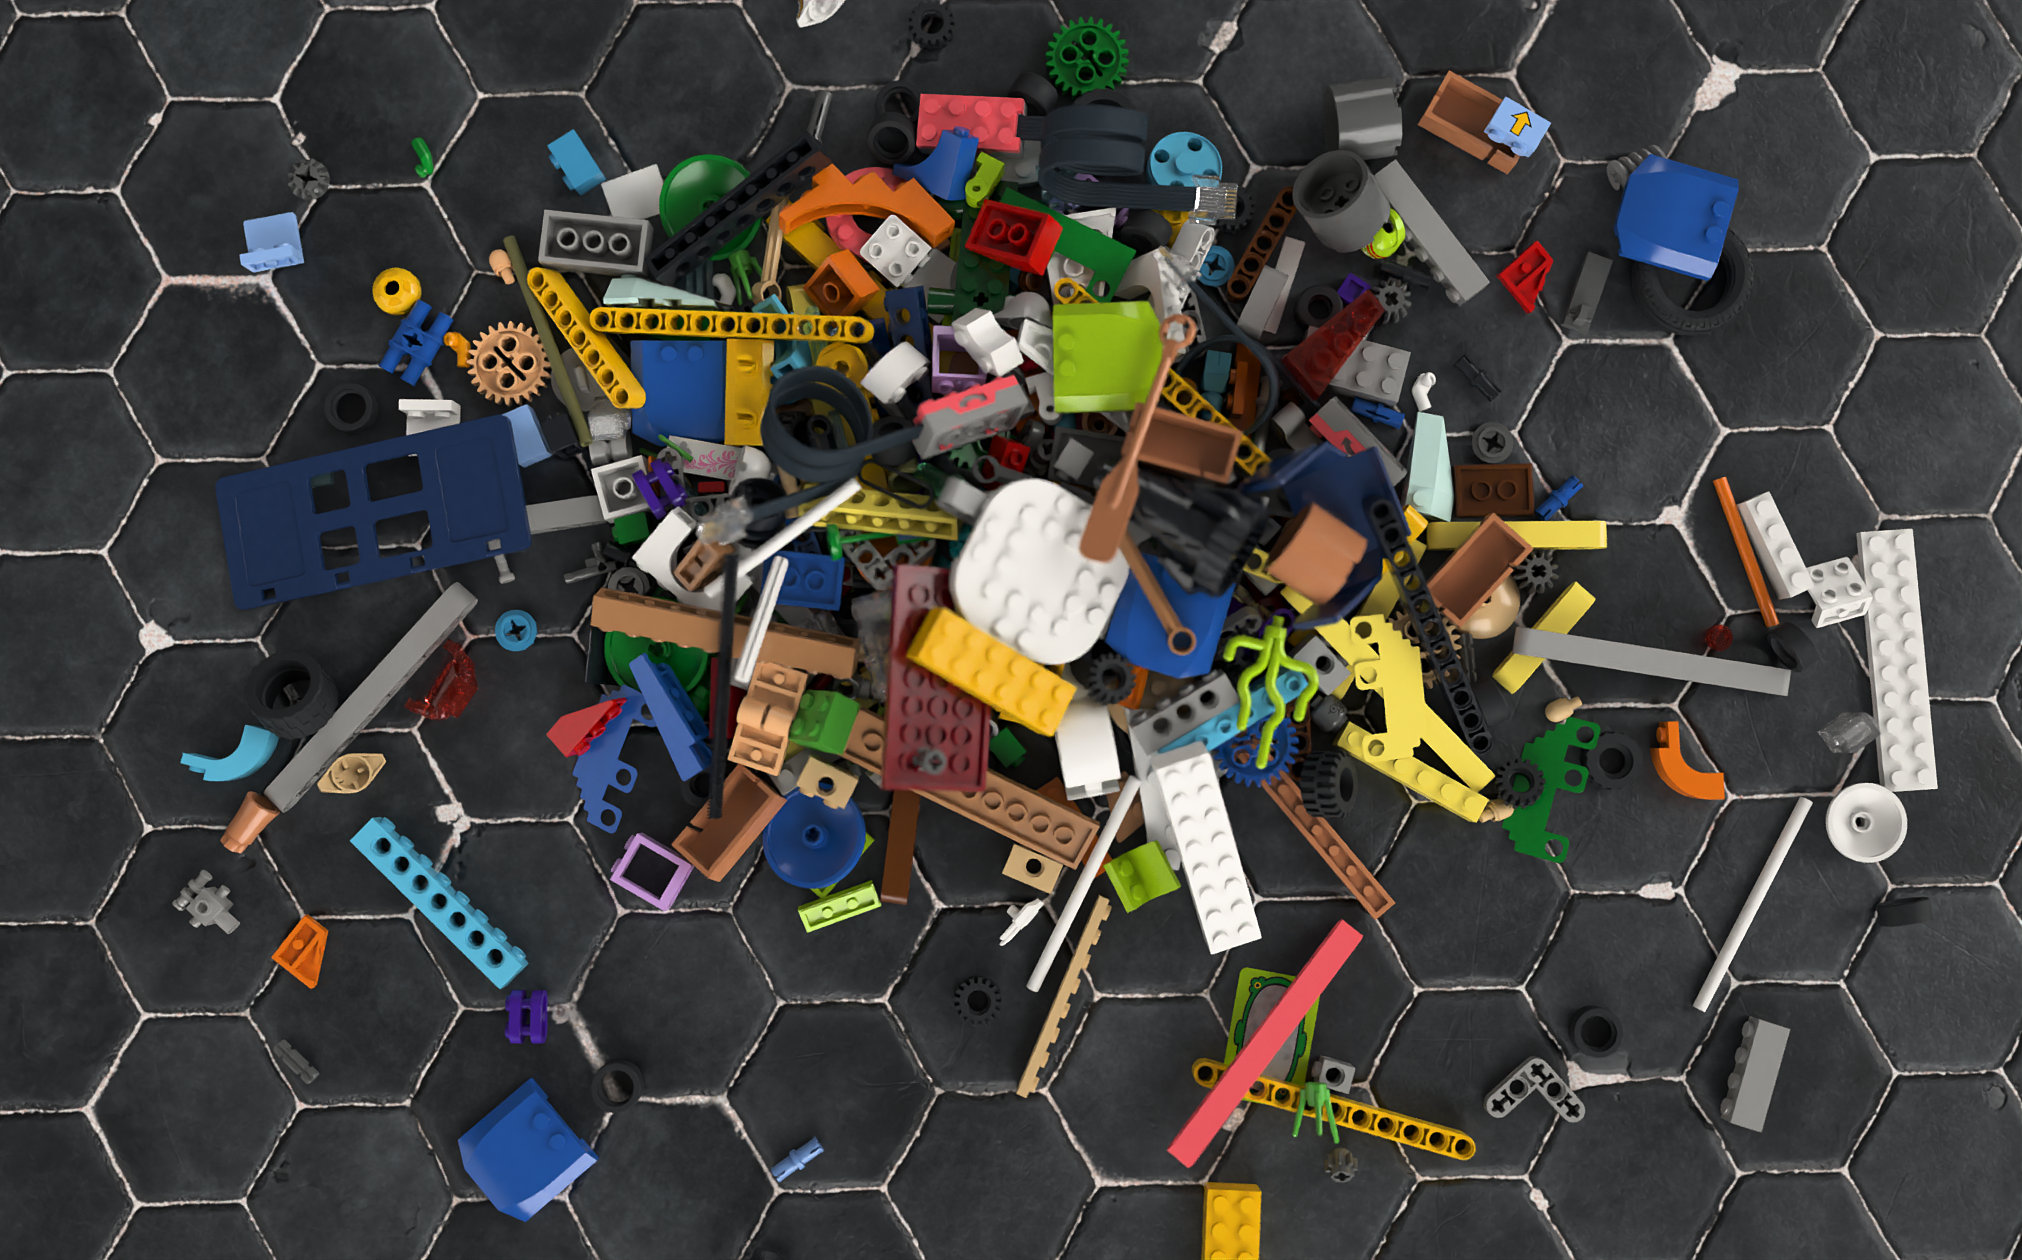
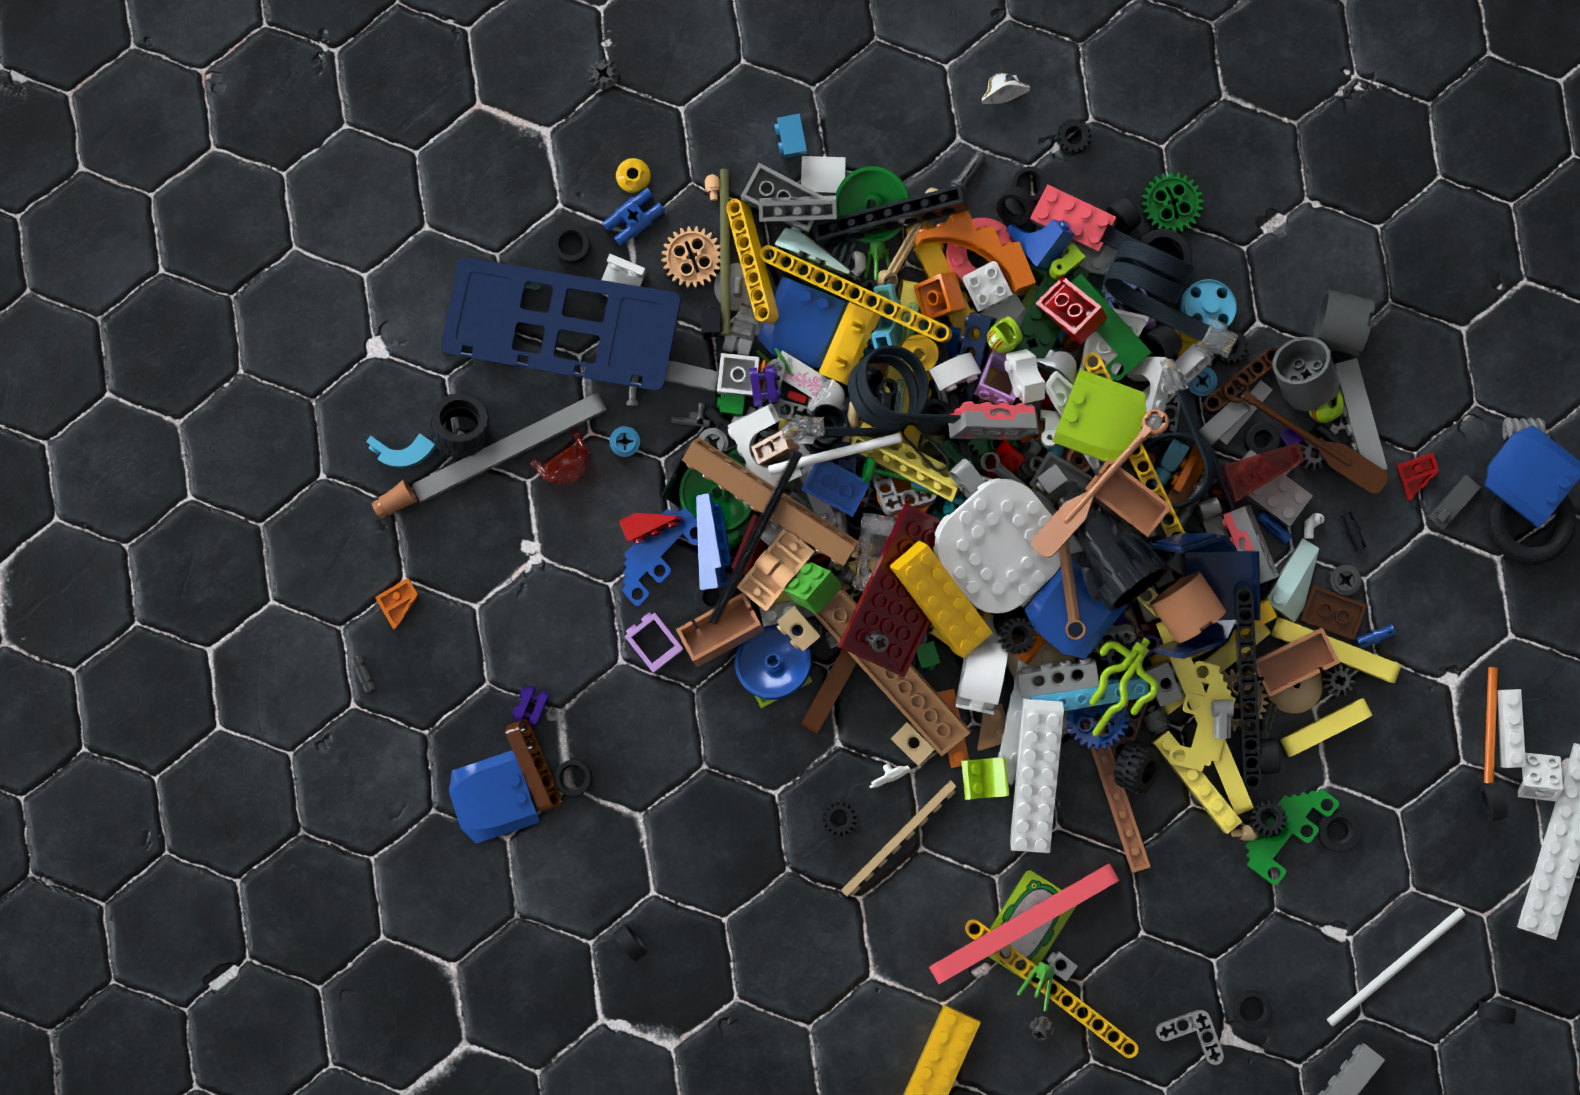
camera: 30 degrees right, 0 degrees up
(209, 905) = (347, 545): light grey piece -> none
(272, 242) = (562, 108): light blue bracket -> none
(351, 773) = (478, 494): tan hat -> none
(369, 843) = (470, 545): medium azure brick -> none
(426, 166) = (689, 90): green arm -> none
(461, 346) = (662, 230): light orange arm -> none
(525, 1062) = (533, 765): none -> reddish brown beam
(528, 436) = (686, 317): light blue brick -> none
(613, 246) = (797, 208): none -> light grey brick
(761, 619) = (799, 502): white axle -> none
(797, 1159) = (674, 876): medium blue pin -> none
(839, 906) = (770, 717): lime tile -> none
(936, 305) = (1002, 338): none -> lime helmet
(1084, 883) = (943, 767): white piece -> none
(1410, 672) = (1222, 712): none -> light grey piece
(1421, 290) = (1337, 455): none -> reddish brown piece
(1460, 116) = (1425, 355): nougat piece -> none
(1516, 127) = (1447, 371): light blue brick -> none
(1561, 708) = (1319, 781): tan cylinder -> none
(1651, 661) = (1393, 773): light grey beam -> none
(1677, 773) = (1380, 858): orange arch -> none
(1719, 637) = (1447, 776): clear red plate -> none
(1849, 732) = (1509, 875): clear brick -> none
(1881, 825) = (1508, 943): white dish -> none

